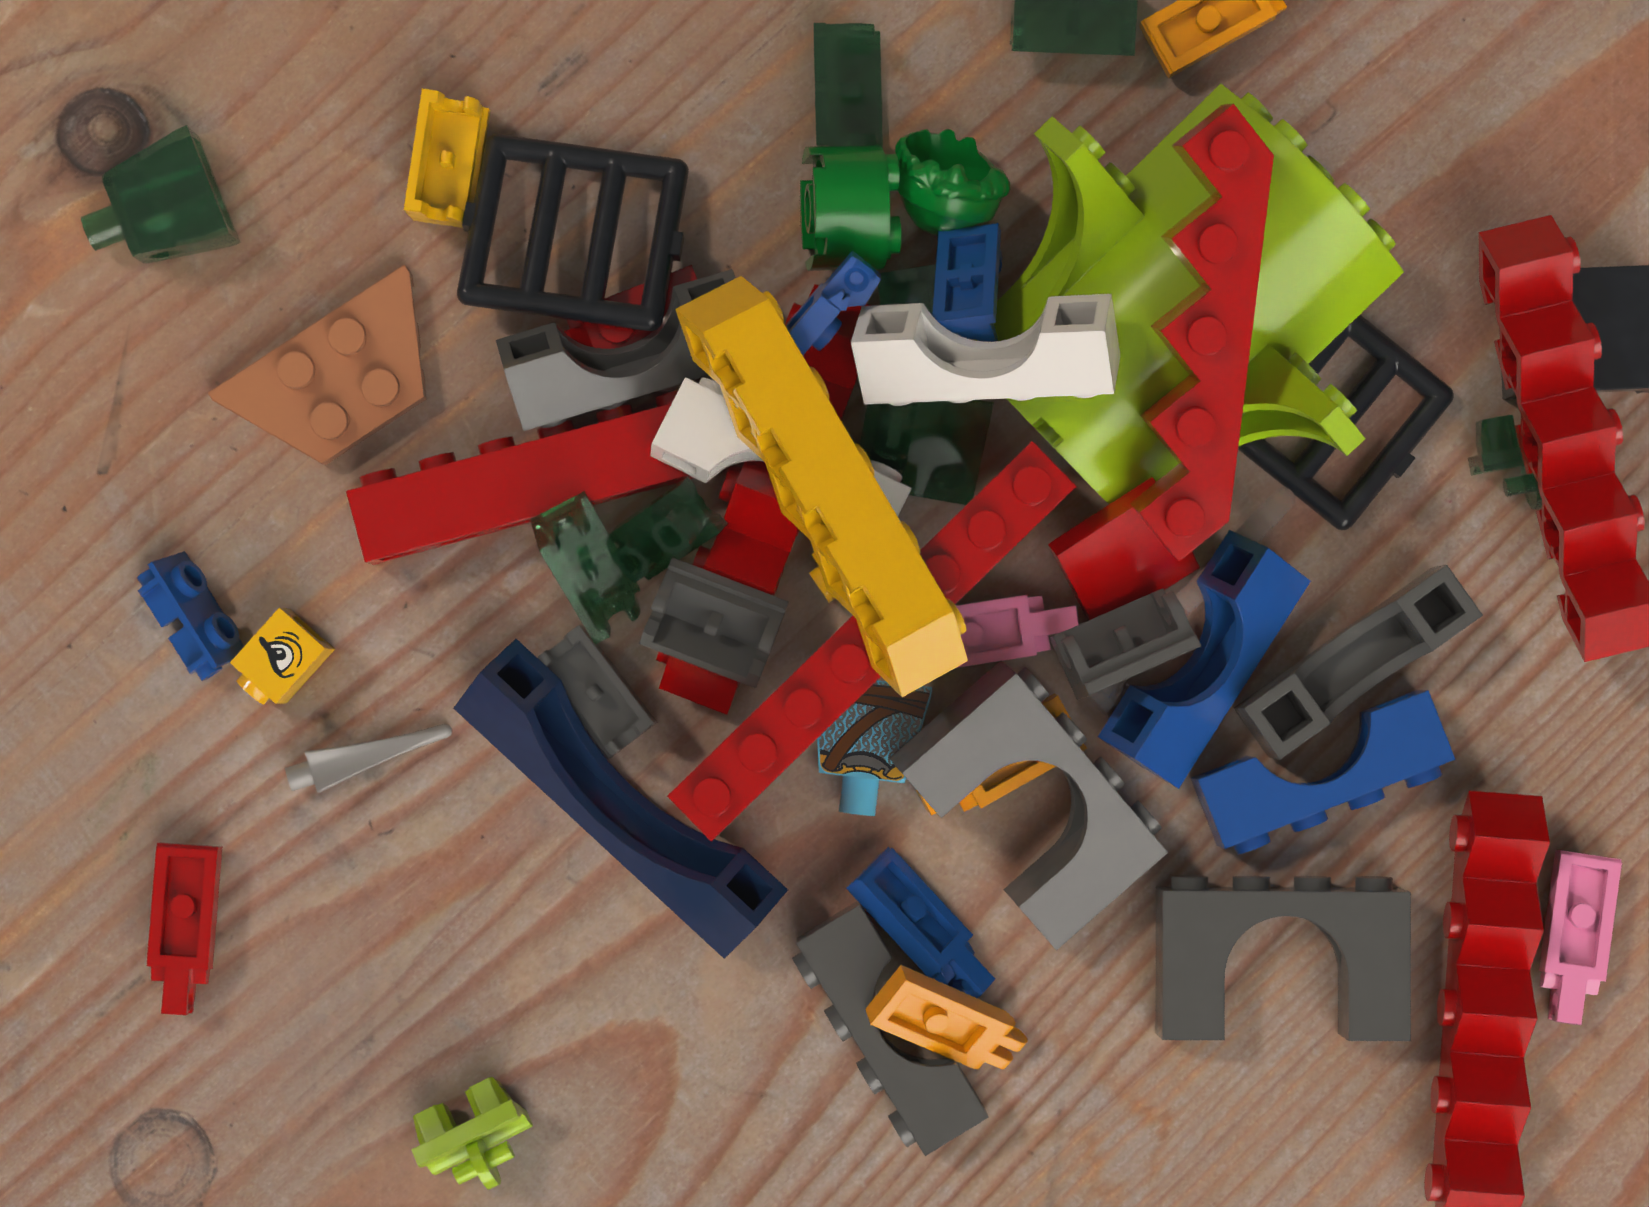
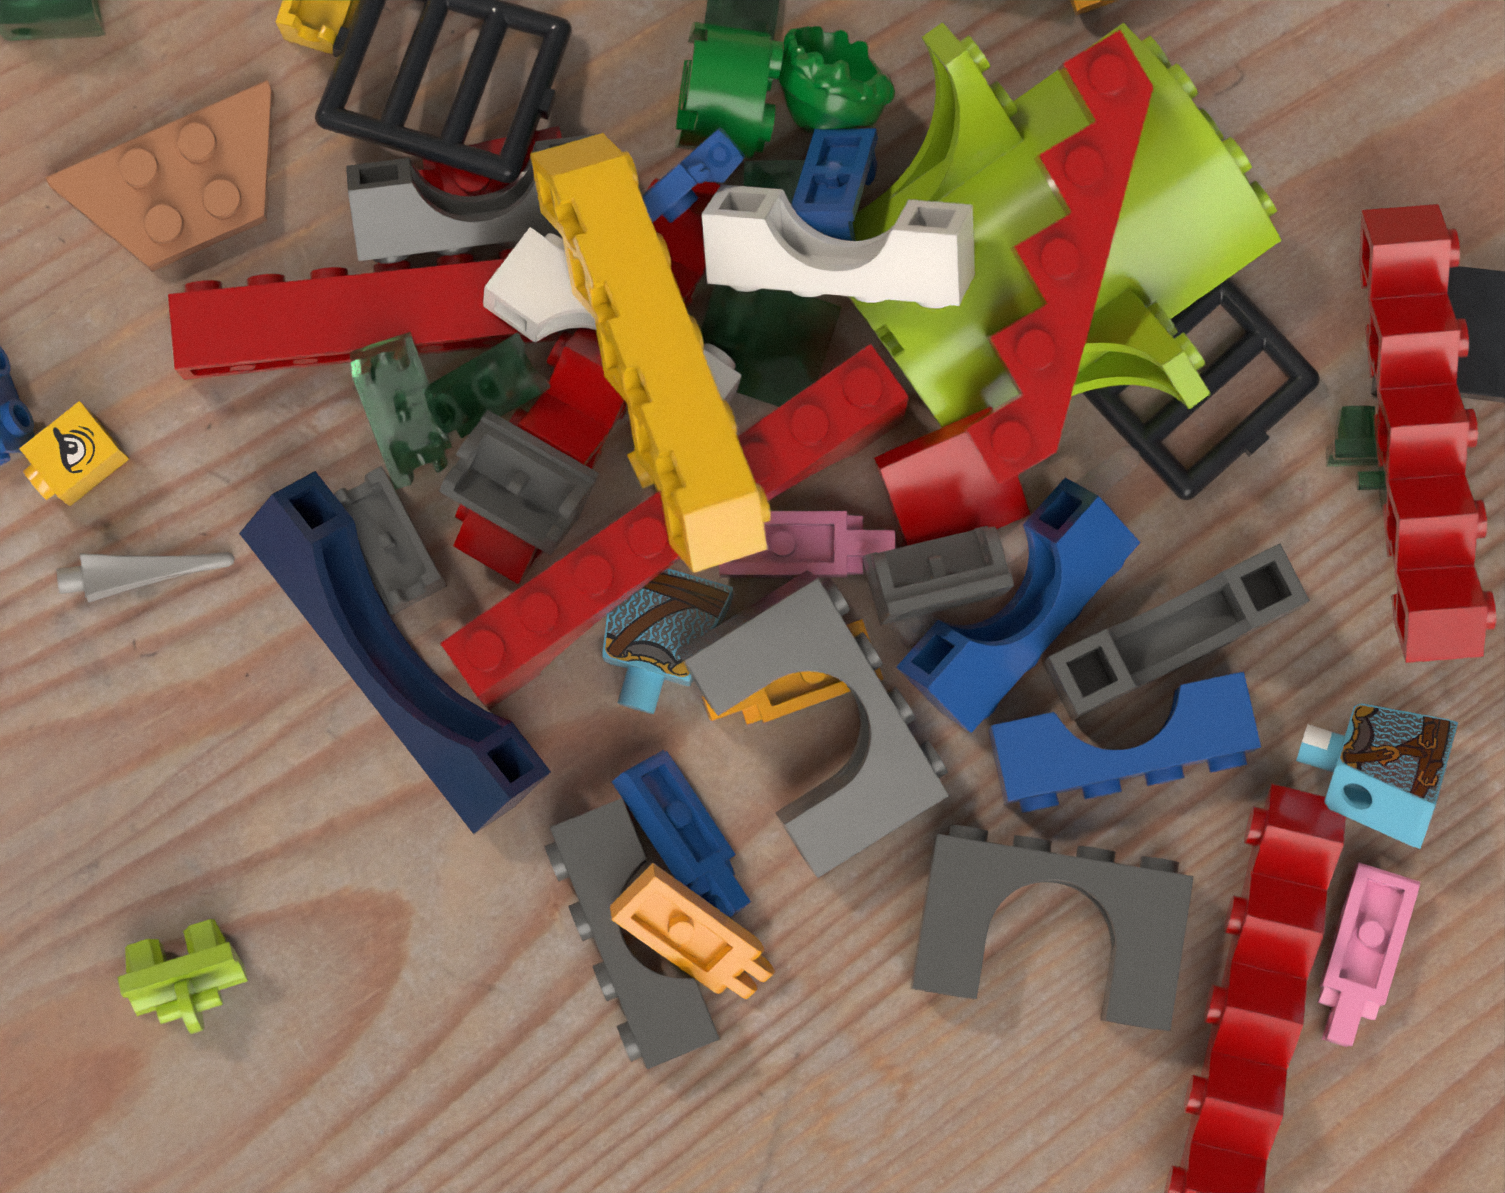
camera: 15 degrees right, 5 degrees down
(1575, 761) = (1384, 768): none -> torso

